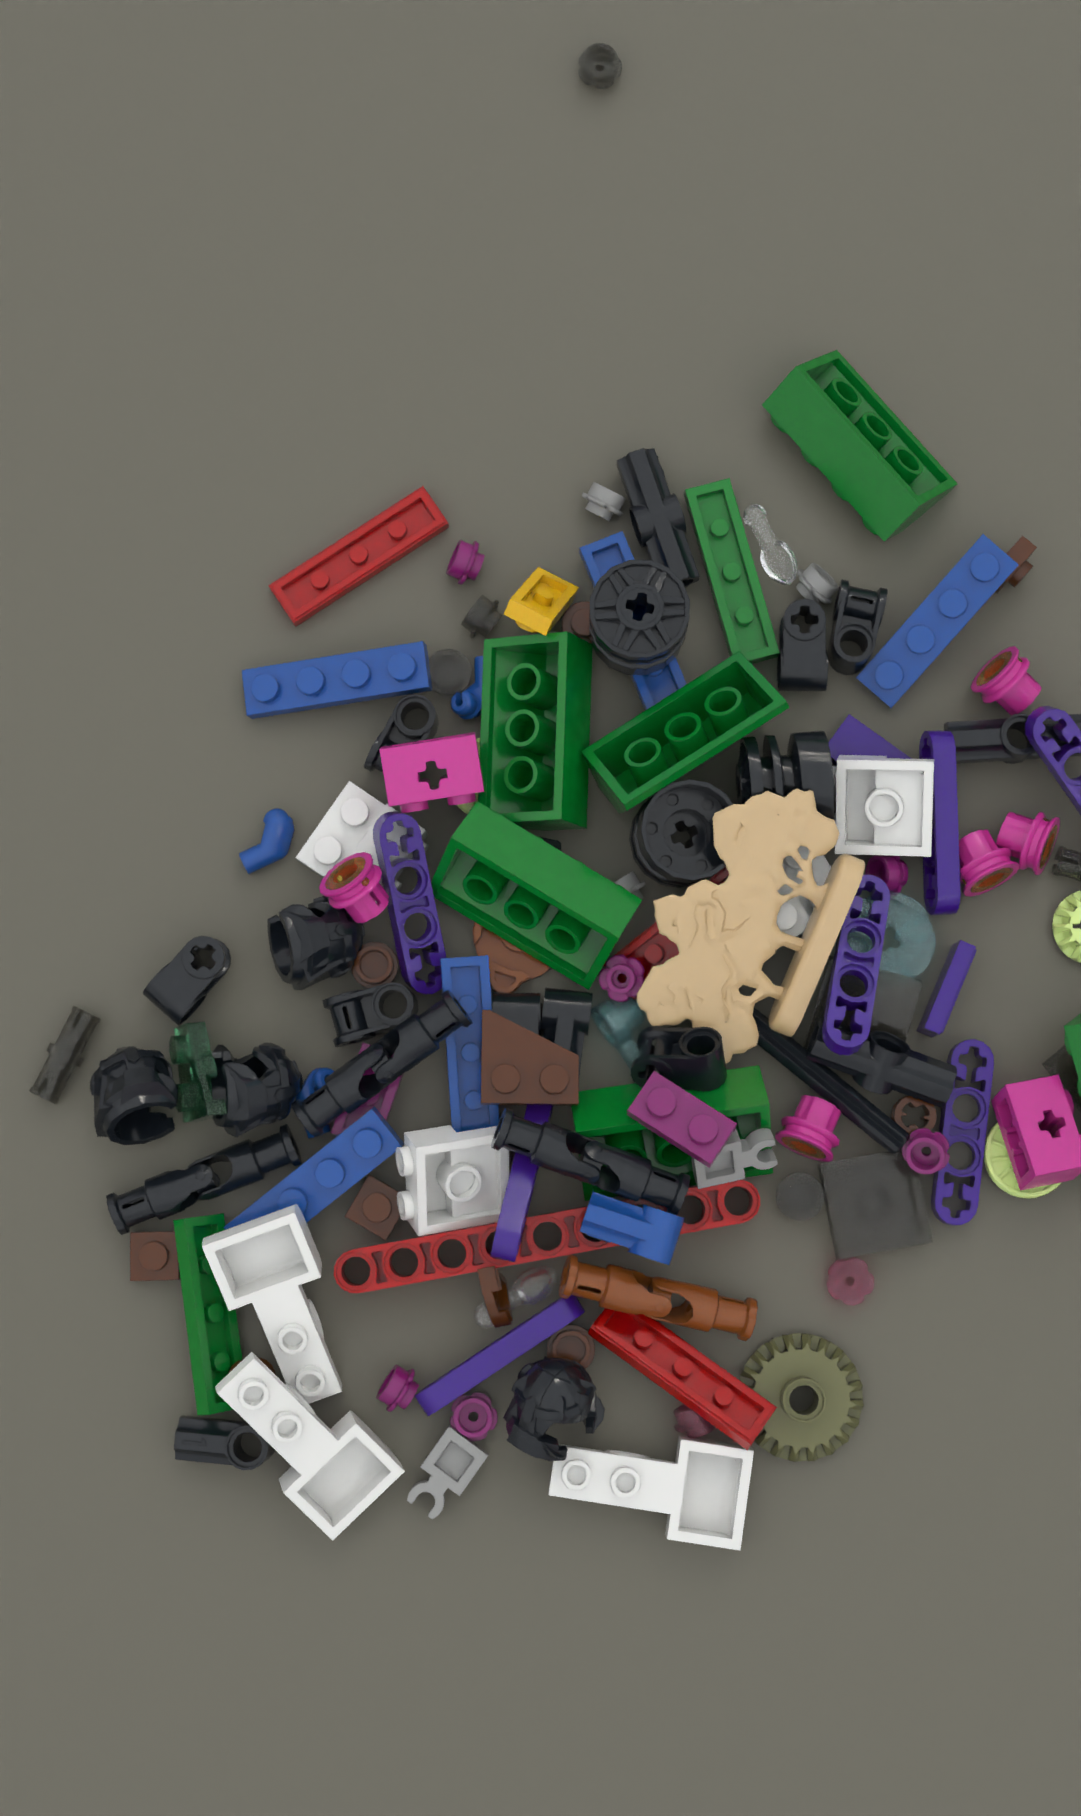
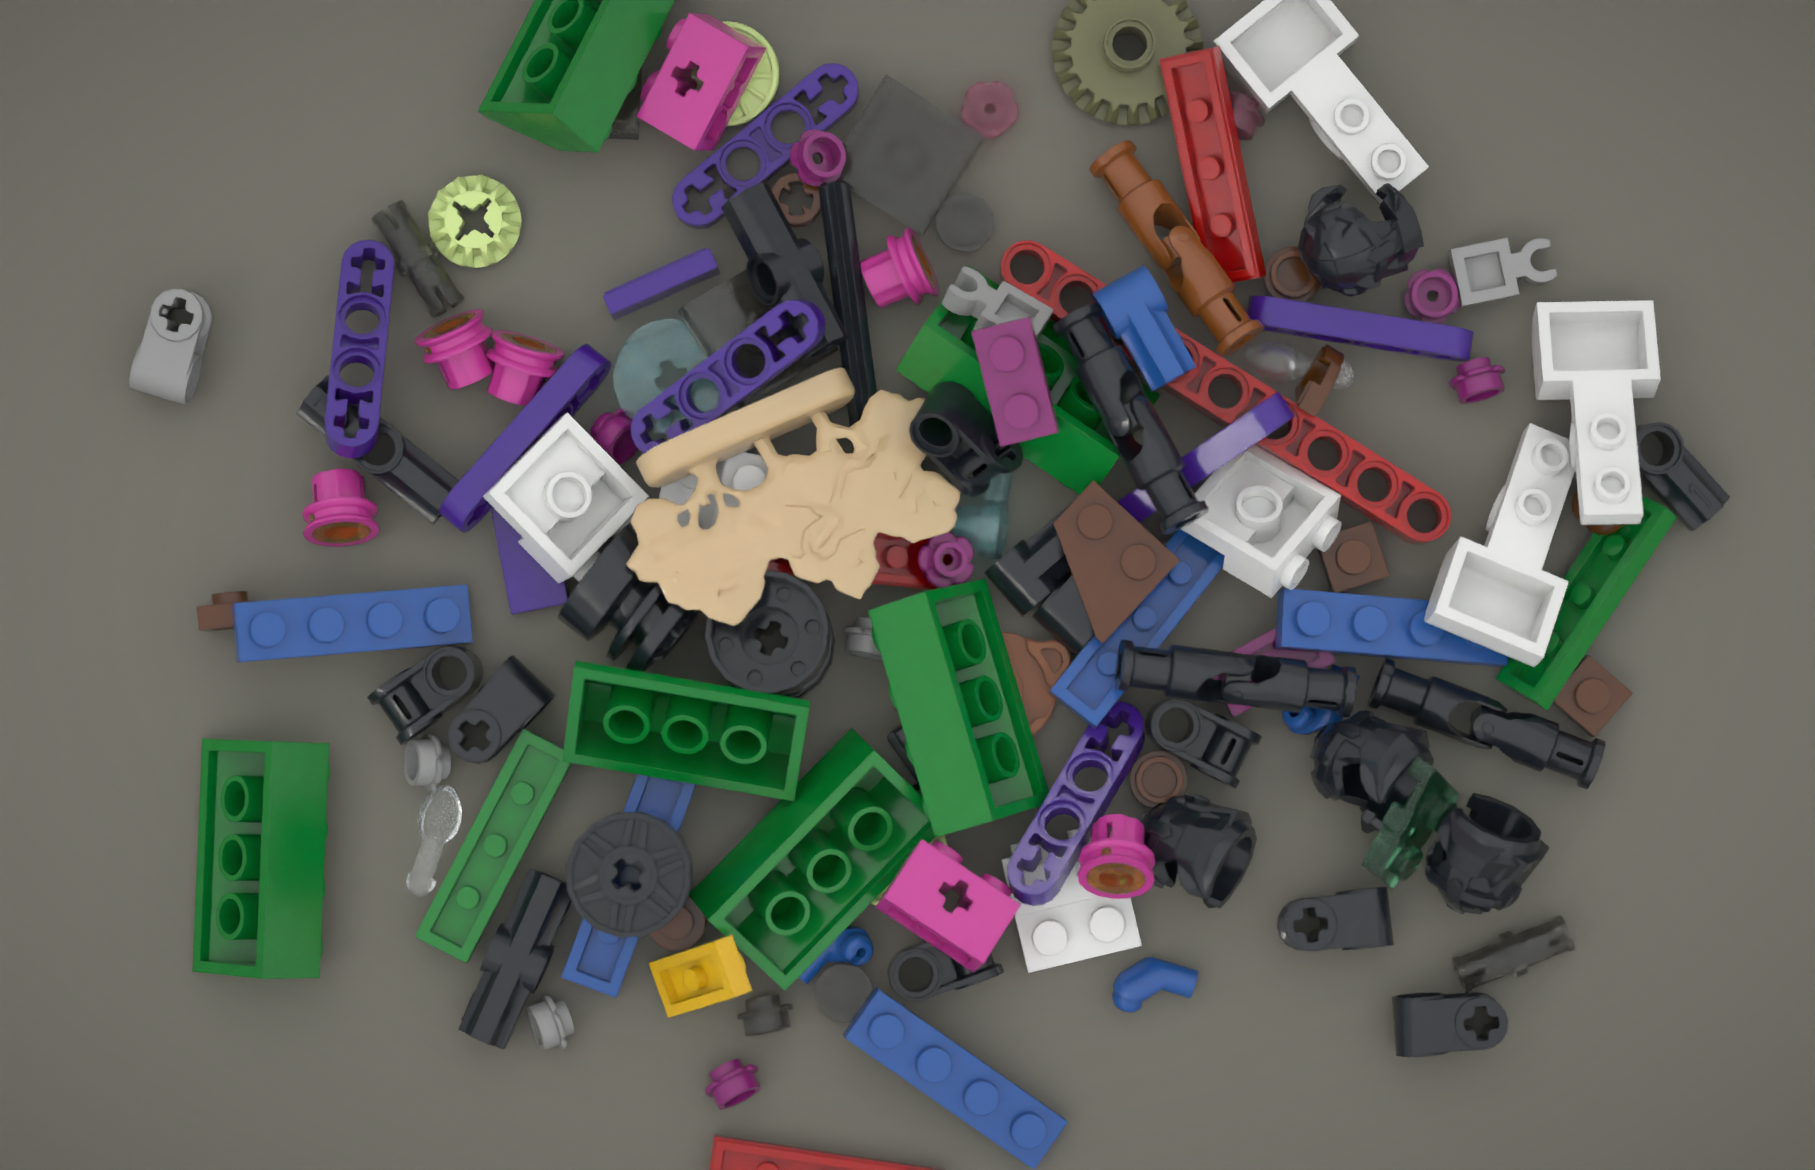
camera: 140 degrees left, 5 degrees up
(72, 972) = (1435, 1023): none -> black piece

